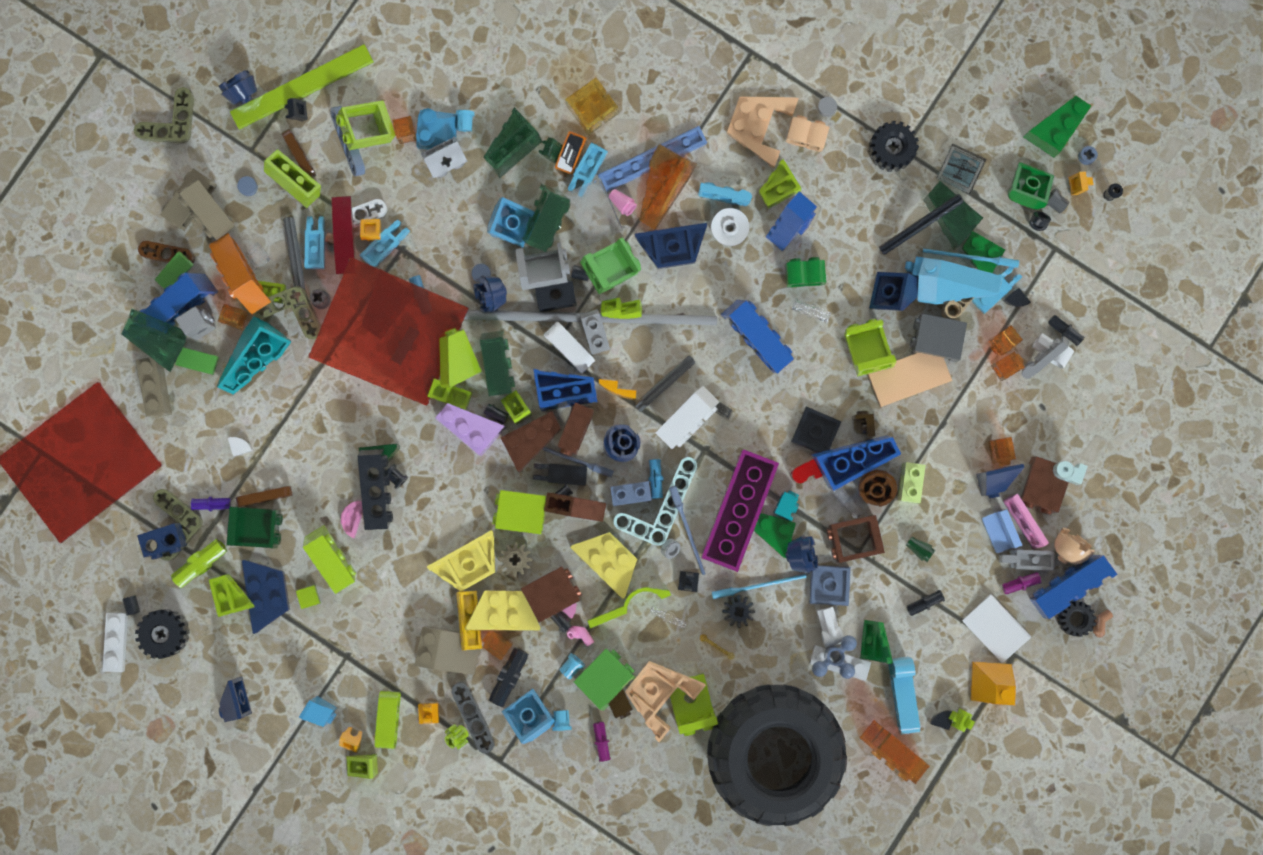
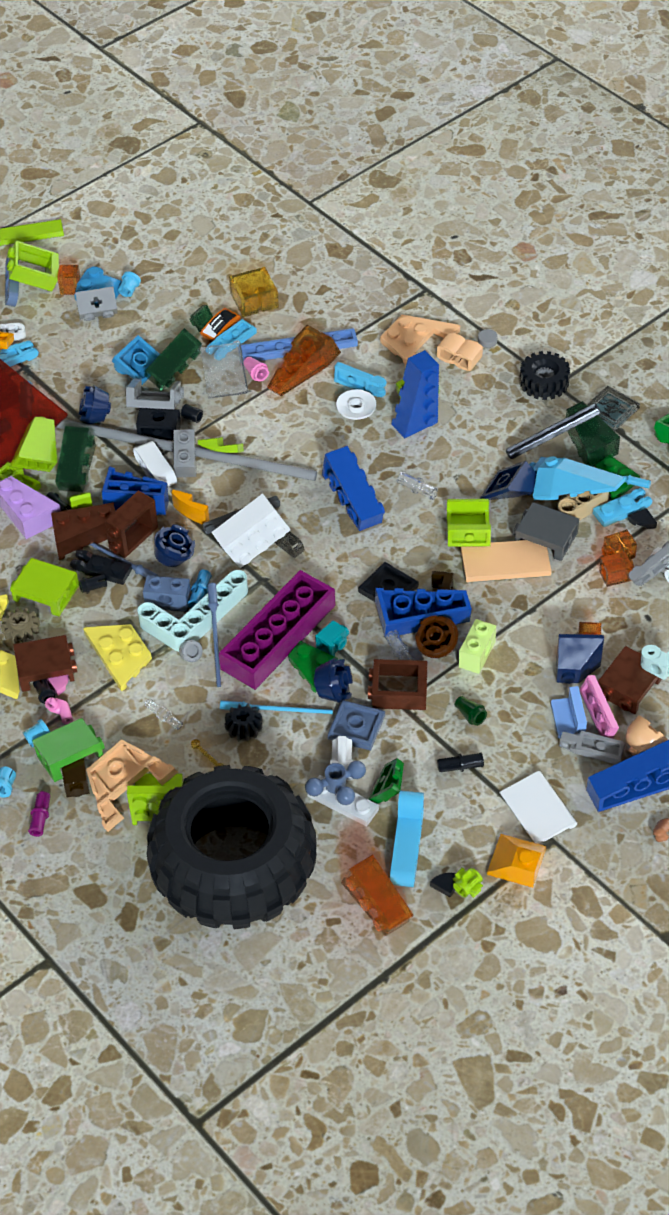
camera: 20 degrees right, 35 degrees down
(512, 144) = (164, 306): clear green wedge -> none
(575, 507) = (104, 586): copper slope -> none
(611, 265) = (223, 410): bright green panel -> none
(662, 593) = (114, 693): lime piece -> none
(673, 245) = (293, 409): dark blue wing -> none
(688, 581) = (199, 687): black tile -> none
(803, 472) = (363, 615): red leg -> none
(805, 273) = (421, 454): green brick -> none
(1021, 583) = (578, 768): magenta axle -> none
(1088, 619) = (640, 804): black tyre -> none

